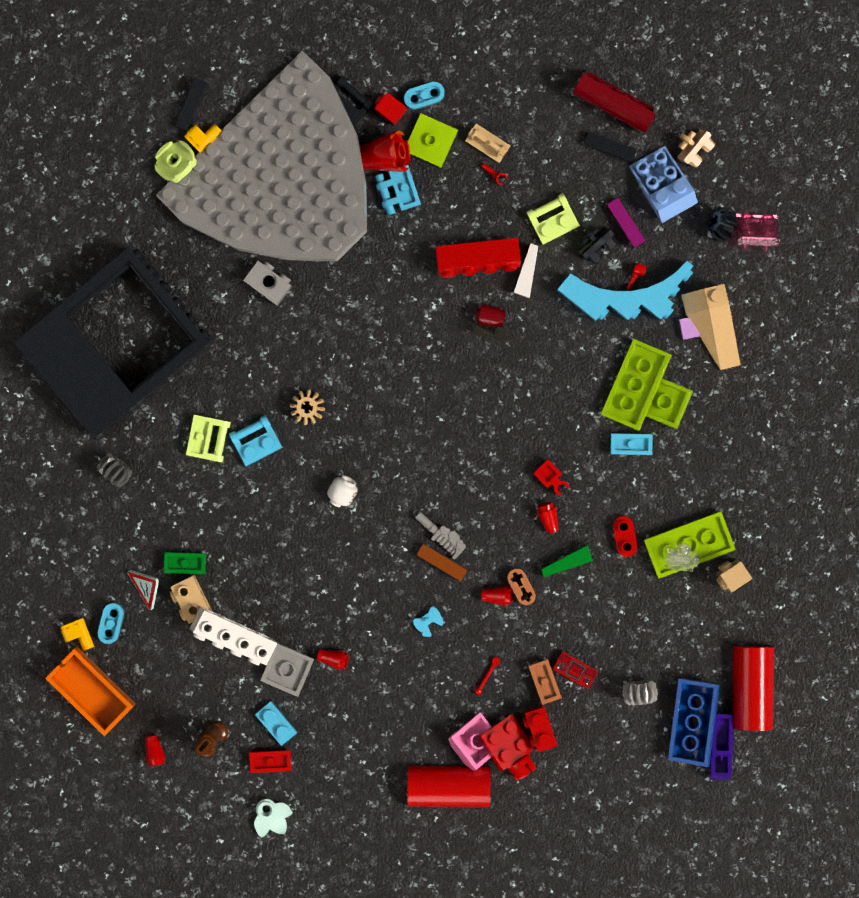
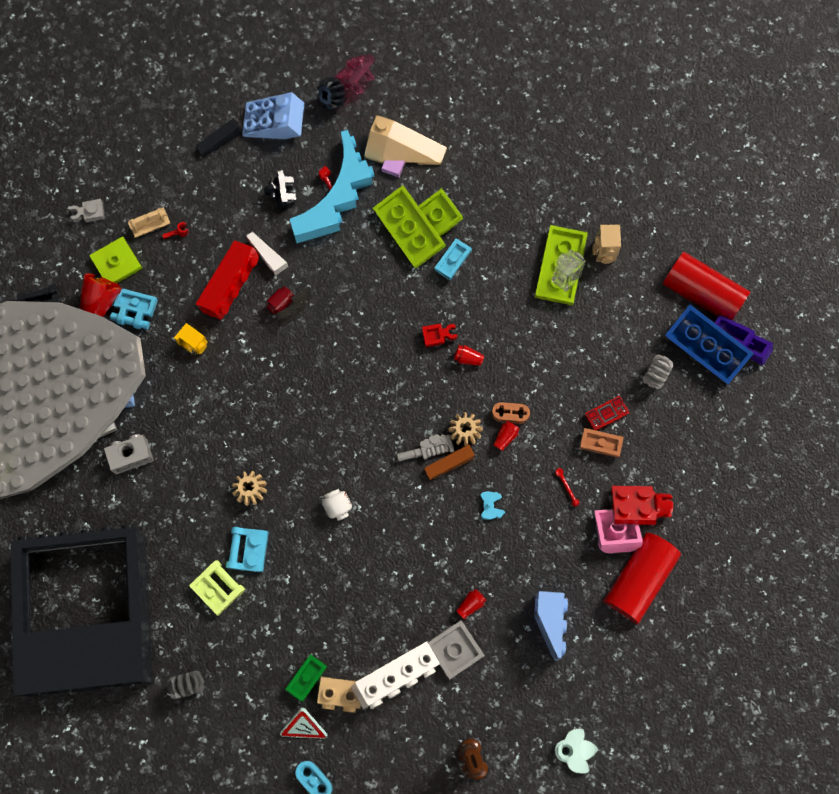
camera: 55 degrees left, 15 degrees down
(270, 761) = (525, 718): red plate -> none
(276, 723) = (495, 691): medium azure plate -> none
(365, 729) = (549, 617): none -> light blue slope
(390, 108) = (68, 274): red brick -> none
(403, 263) = (191, 339): none -> yellow brick
(424, 95) = (76, 245): medium azure plate -> none
(463, 81) = (91, 211): none -> light grey plate
(485, 552) = (462, 423): none -> tan gear
(540, 727) = (638, 469): red brick -> none
(557, 224) = (247, 211): yellowish green plate -> none
(569, 561) = (515, 359): green piece -> none
(615, 101) = (186, 110): dark red brick -> none
(625, 536) = (522, 310): red plate -> none
(626, 223) = (290, 161): magenta piece -> none
(692, 144) = (258, 80): tan hips -> none

